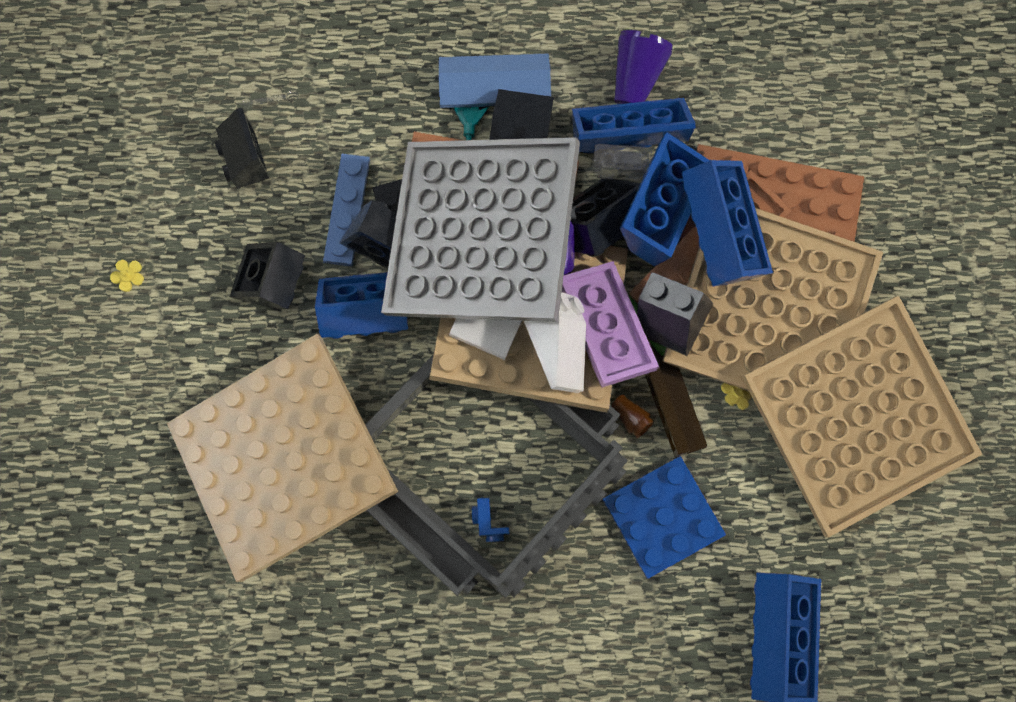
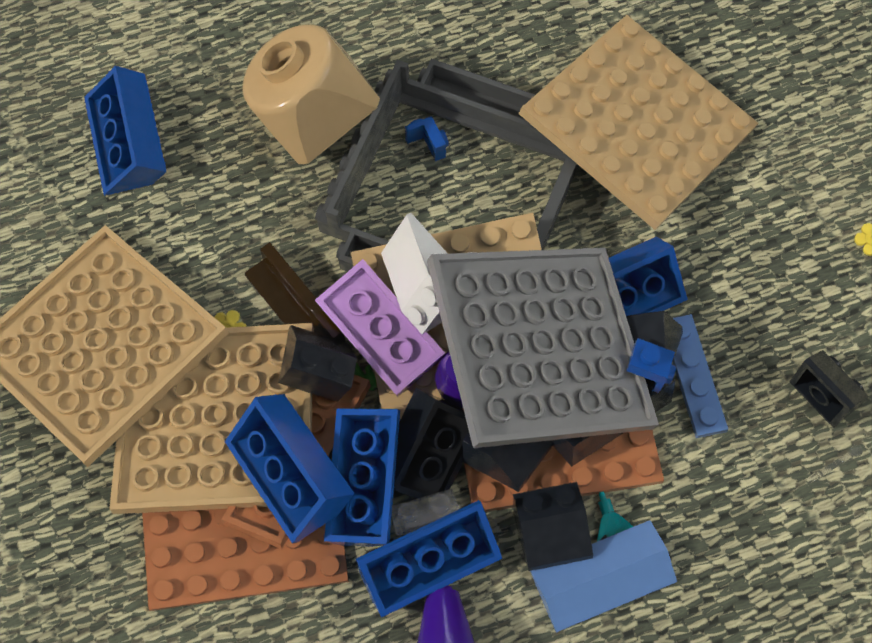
camera: 160 degrees right, 10 degrees down
(268, 275) = (736, 278): black slope -> none
(390, 191) = (652, 363): none -> blue bracket
(597, 590) = (307, 90): none -> tan piece
(634, 418) = (323, 269): reddish brown cone -> none
(663, 517) = (267, 197): blue plate -> none

